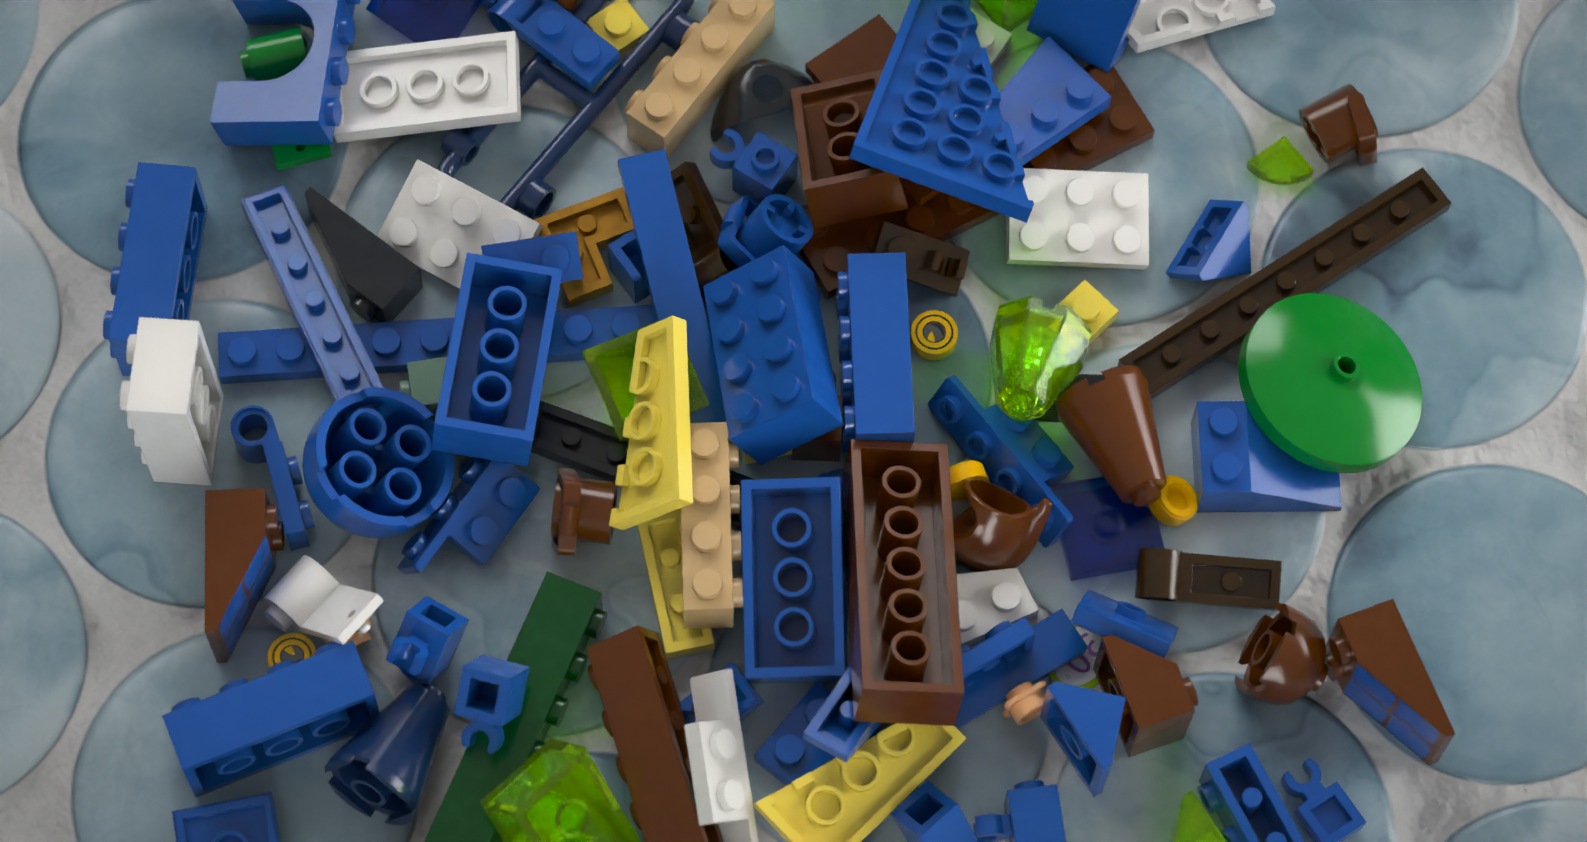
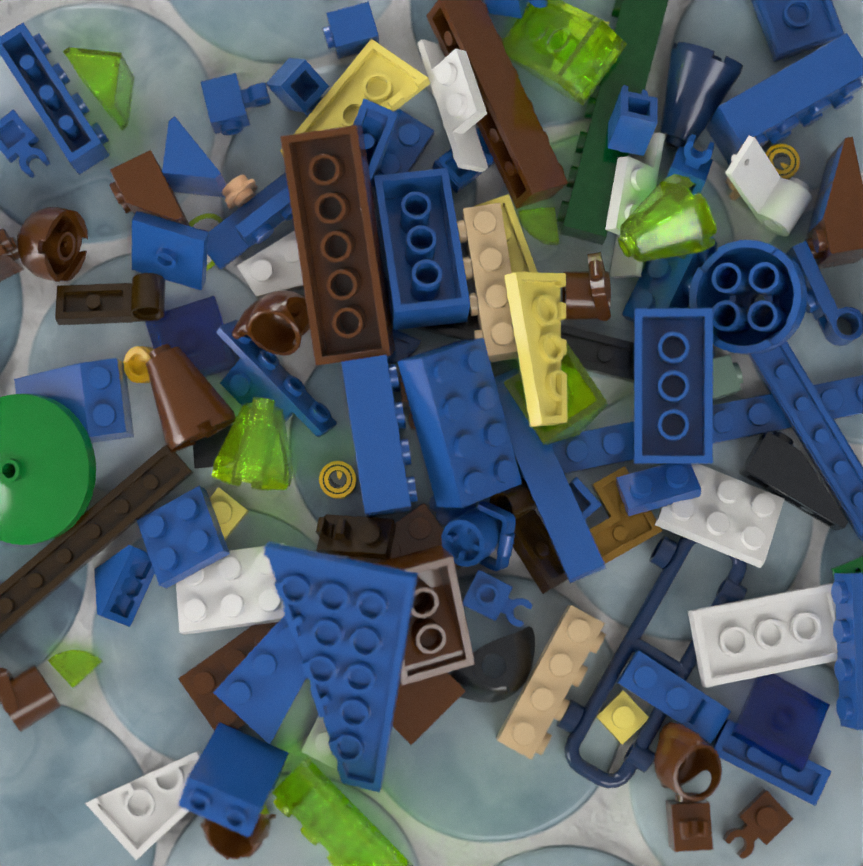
camera: 175 degrees right, 15 degrees up
(471, 553) = (668, 223): none -> clear neon green cone
(506, 602) = (632, 183): none -> bracket
(625, 612) = (541, 224): none -> clear neon green tile
(960, 472) = (300, 359): yellow tile -> none
(1135, 280) = (183, 537): none -> blue plate

